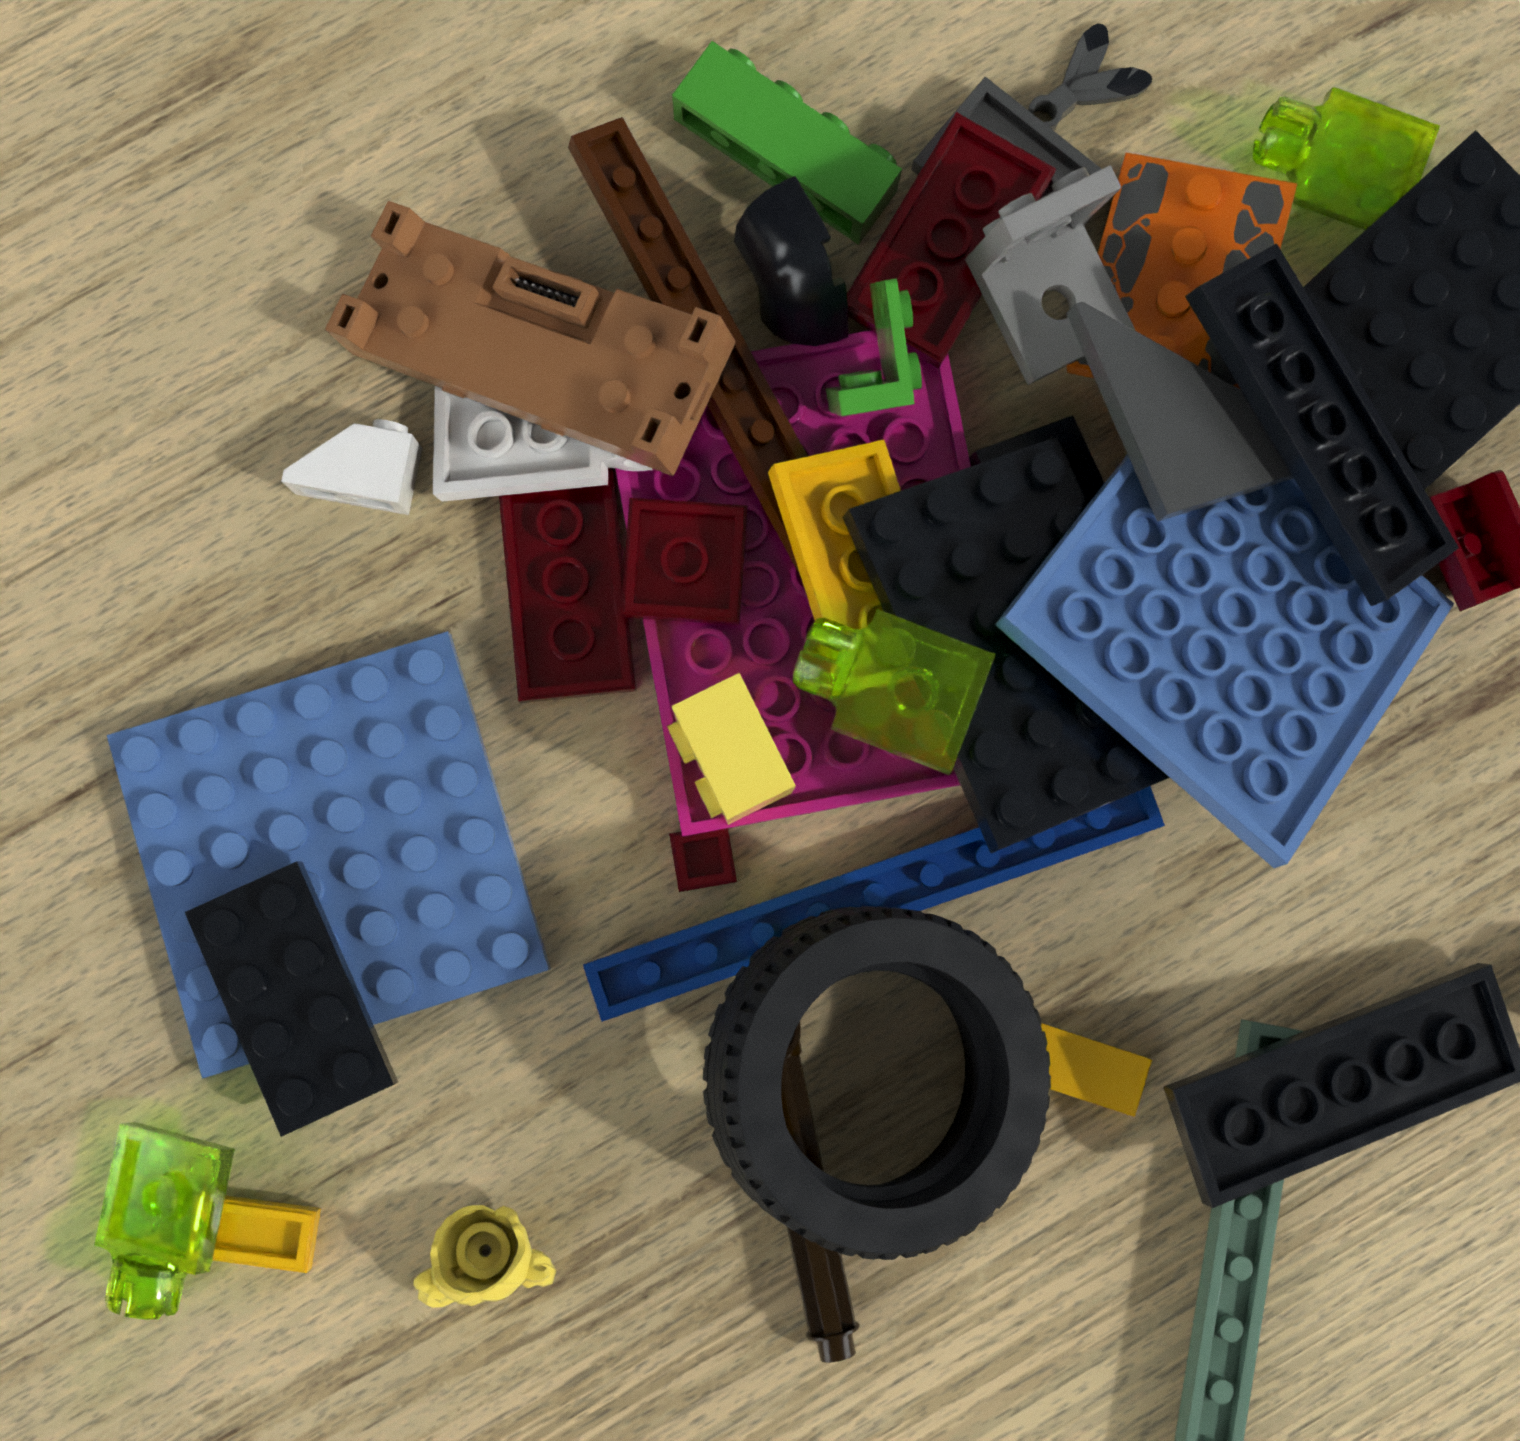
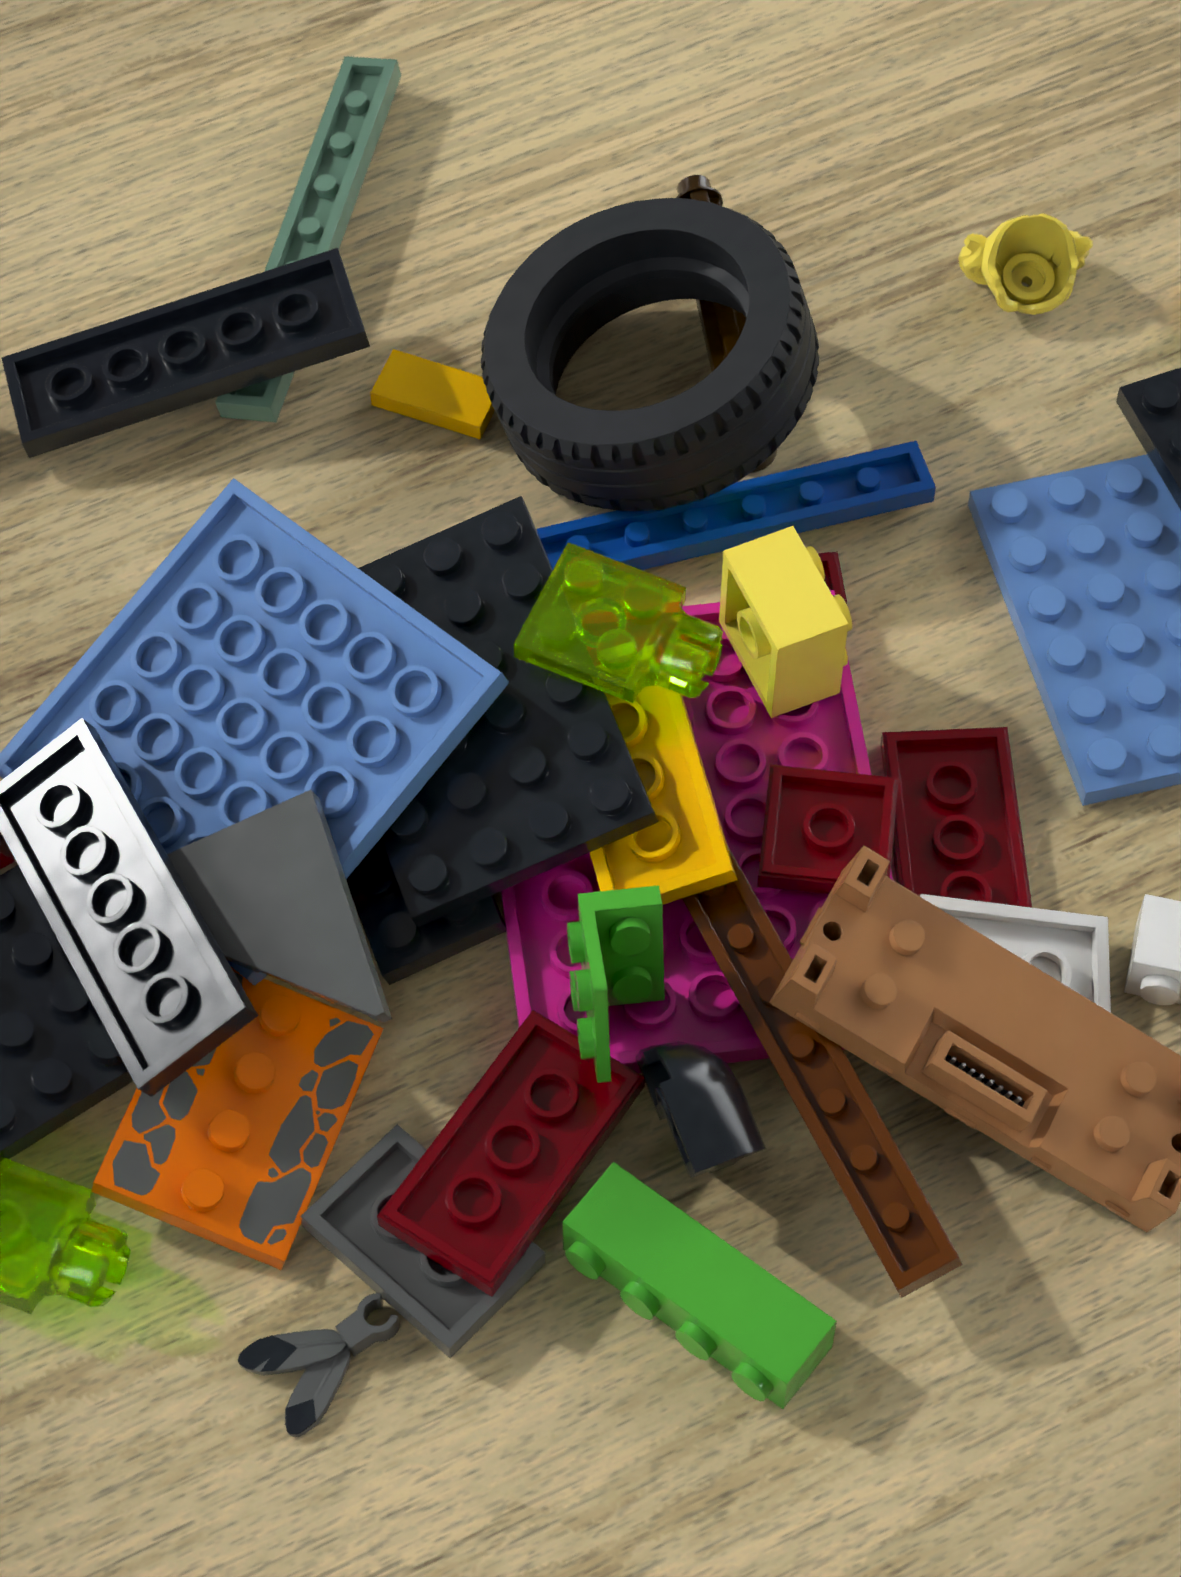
camera: 170 degrees left, 25 degrees down
(1042, 250) = (404, 1073): light grey bracket -> none

